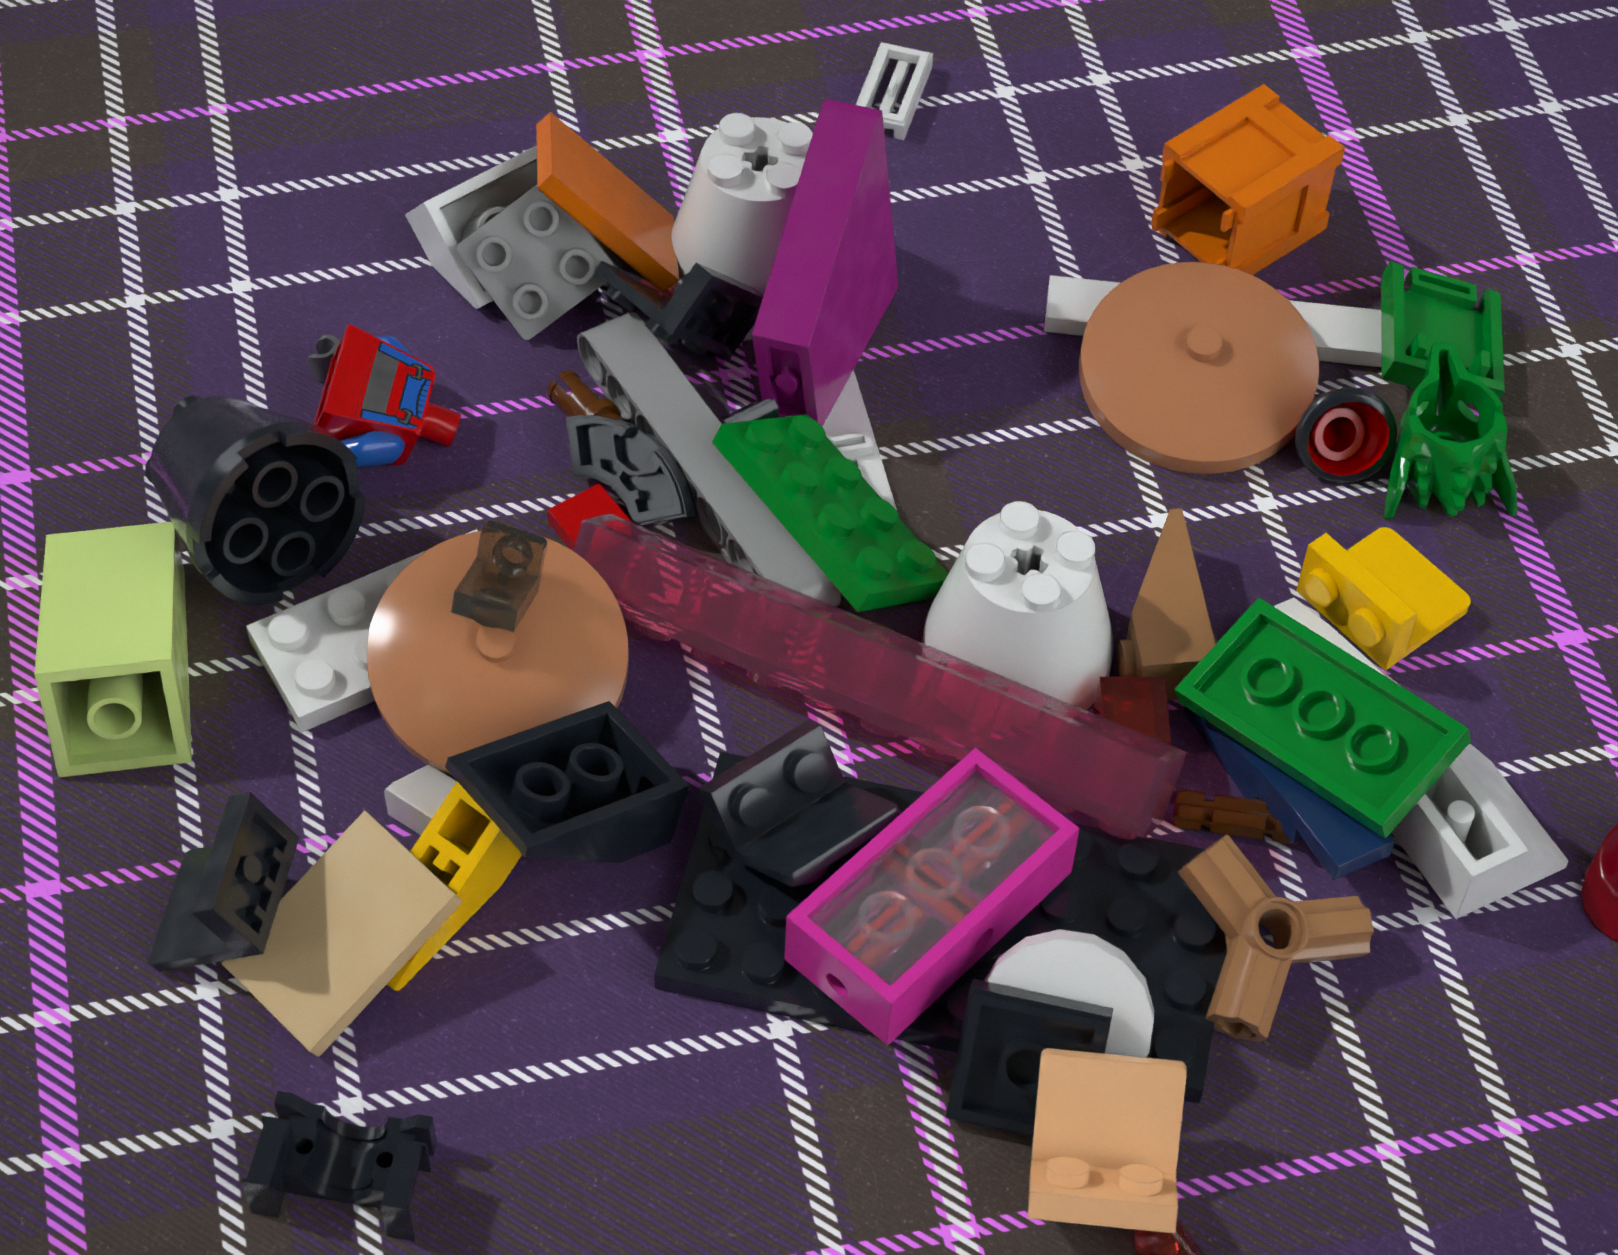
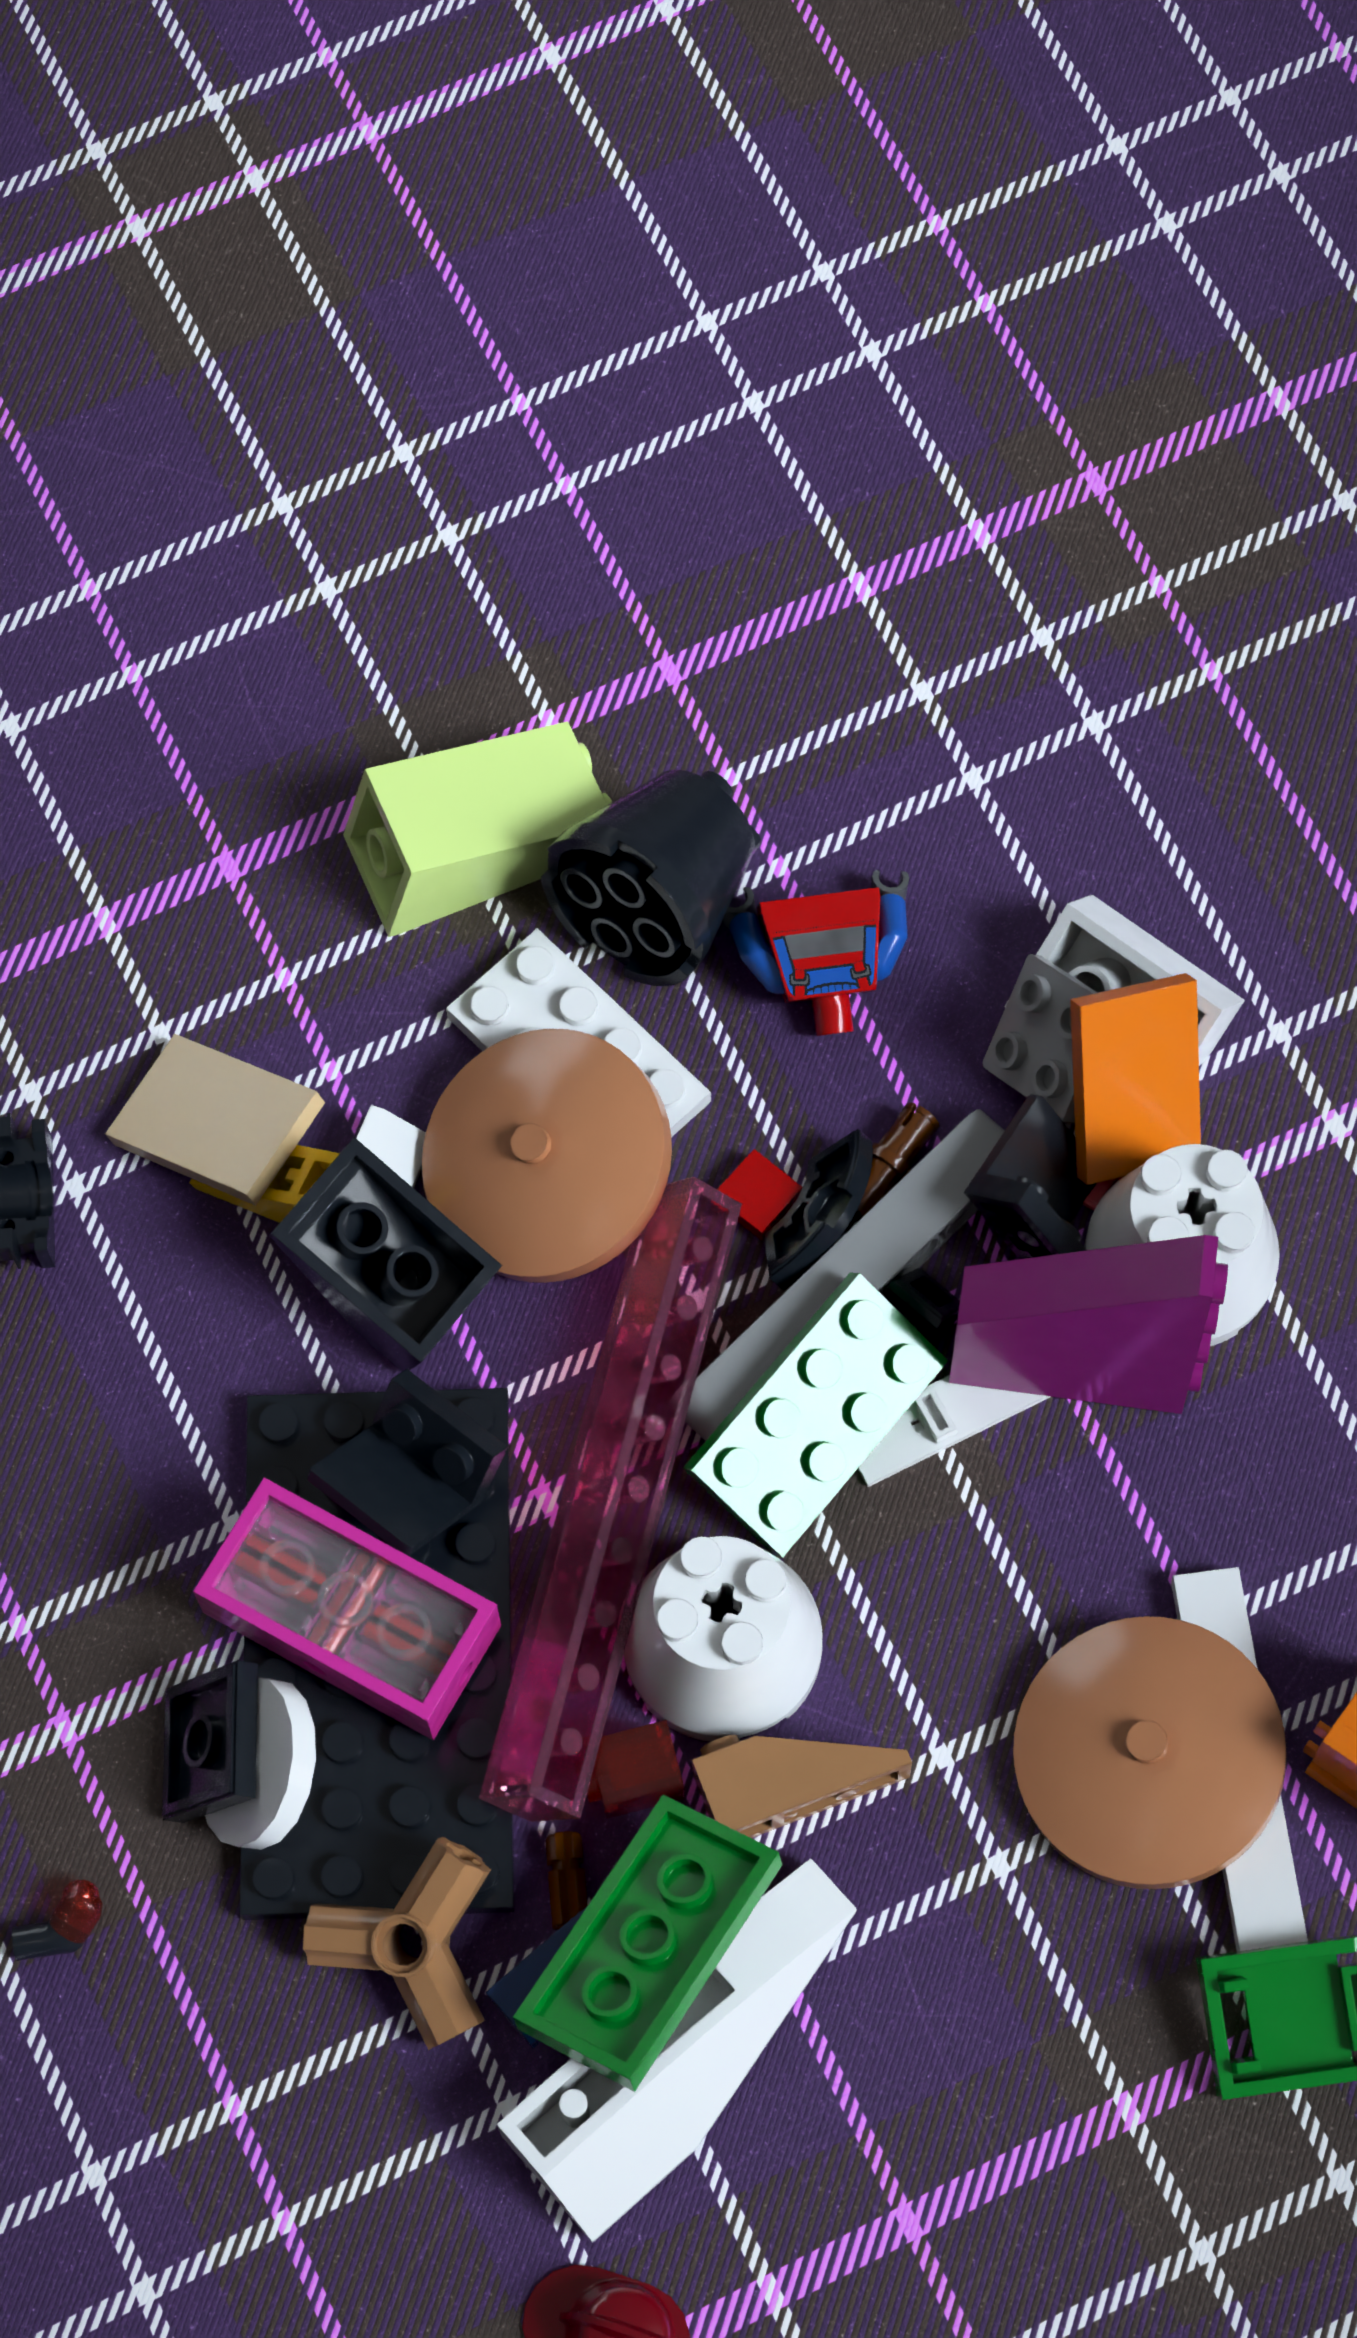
camera: 80 degrees right, 15 degrees up
(227, 890) = (222, 1012): black bracket -> none
(501, 577) = (572, 1121): clear smoke bracket -> none
(1106, 1140) = (135, 1831): light nougat bracket -> none
(1346, 435) = (1095, 1923): hat -> none
(1380, 593) = (886, 2001): yellow bracket -> none
(1446, 445) = (1110, 2040): green piece -> none

